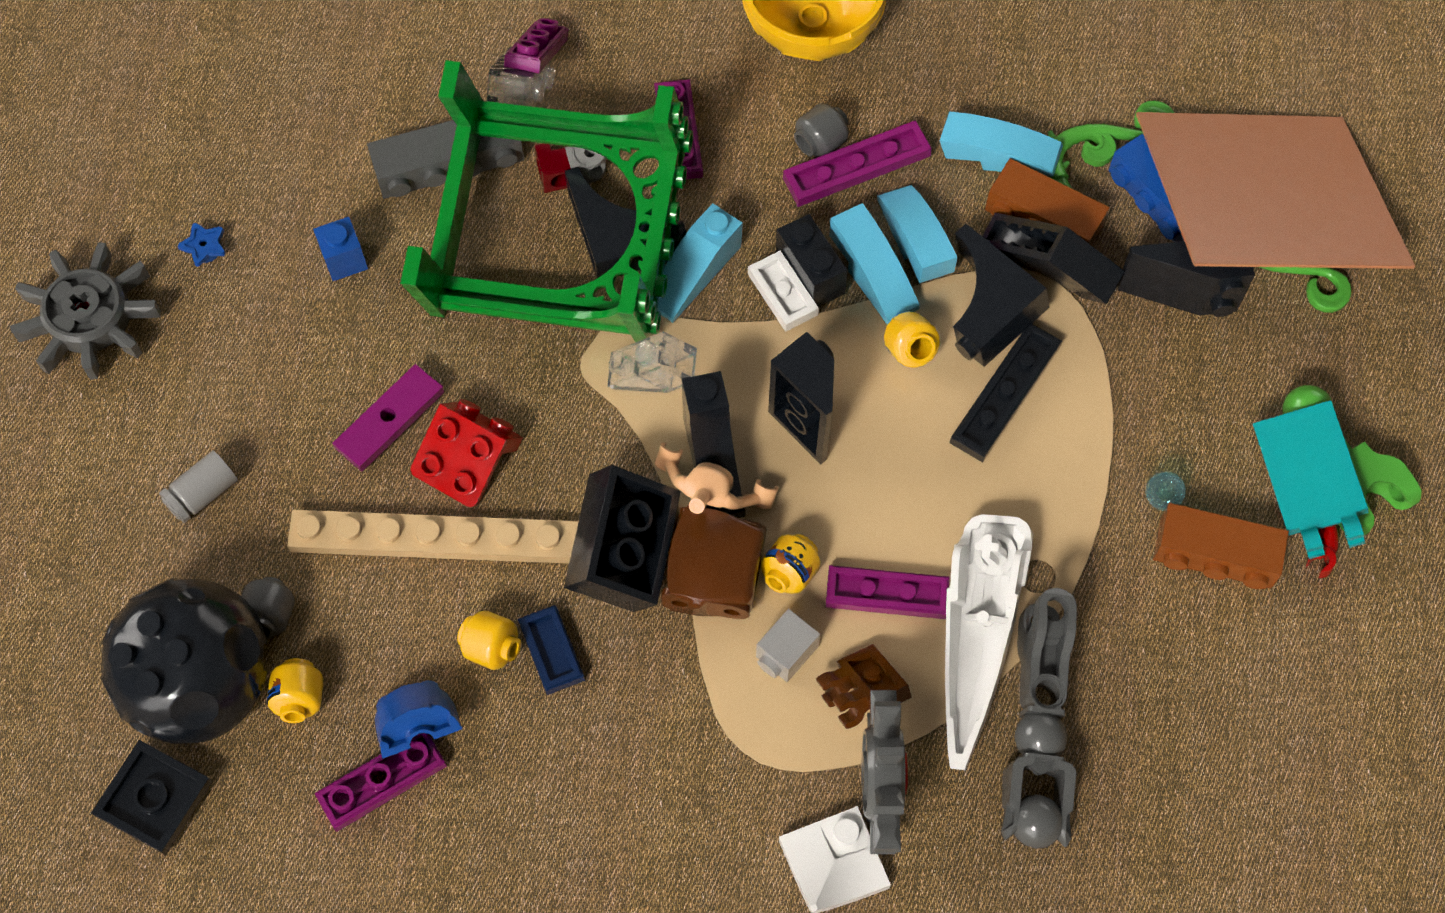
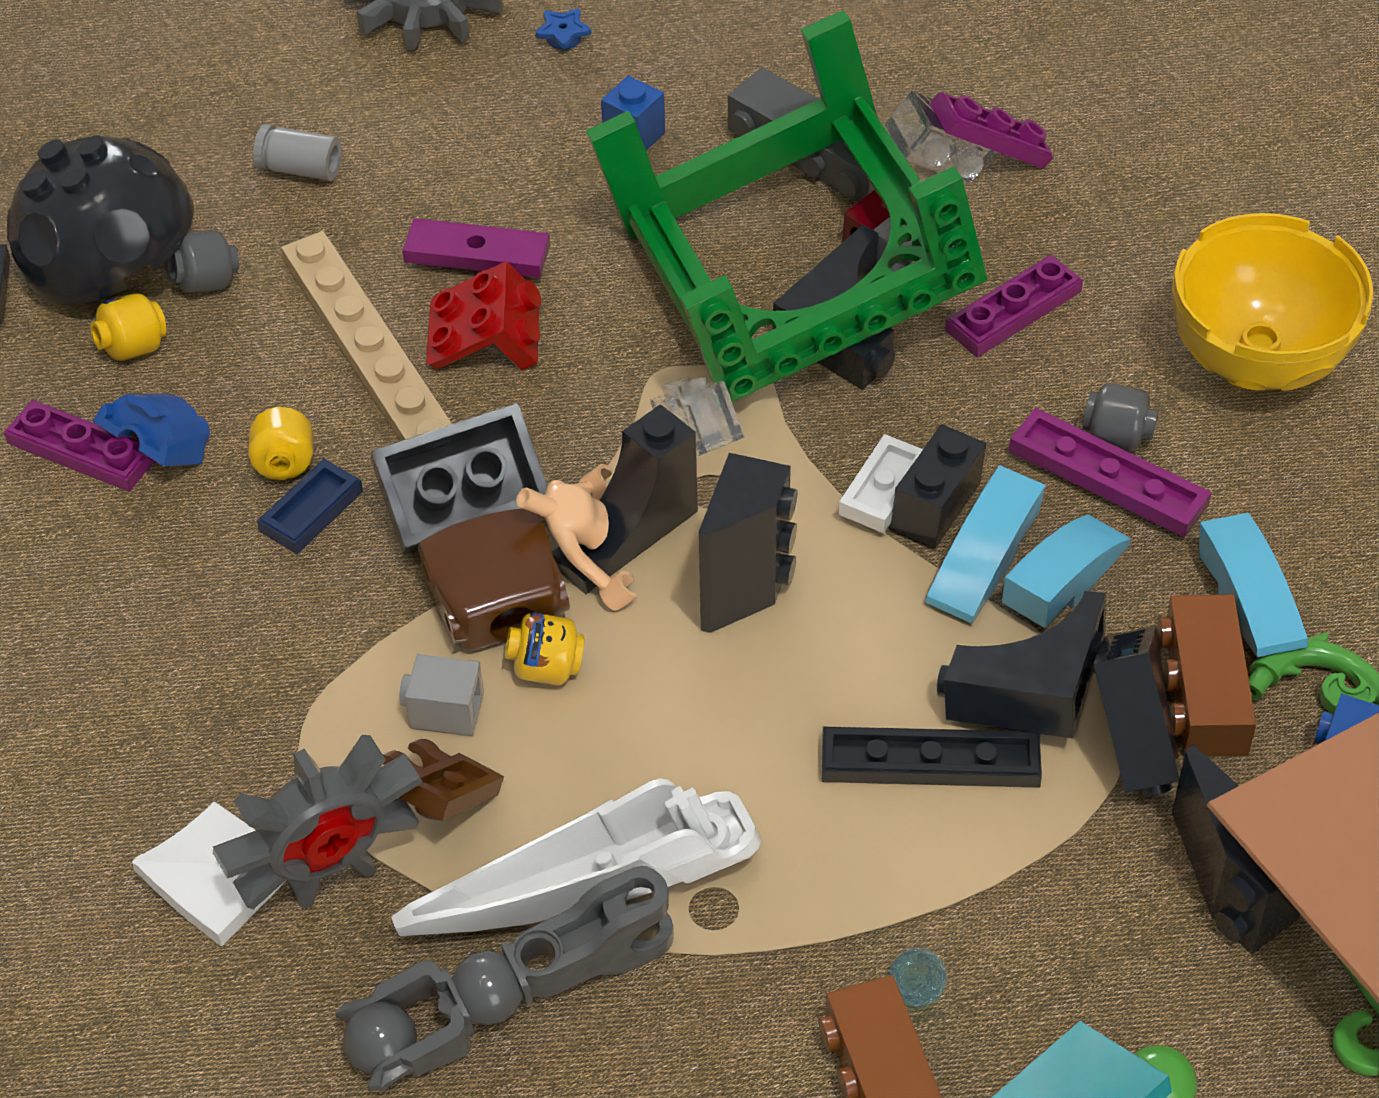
camera: 60 degrees right, 15 degrees down
(699, 258) = (858, 391): medium azure slope -> none
(887, 592) = (576, 752): magenta tile -> none
(911, 339) = (913, 621): yellow head -> none

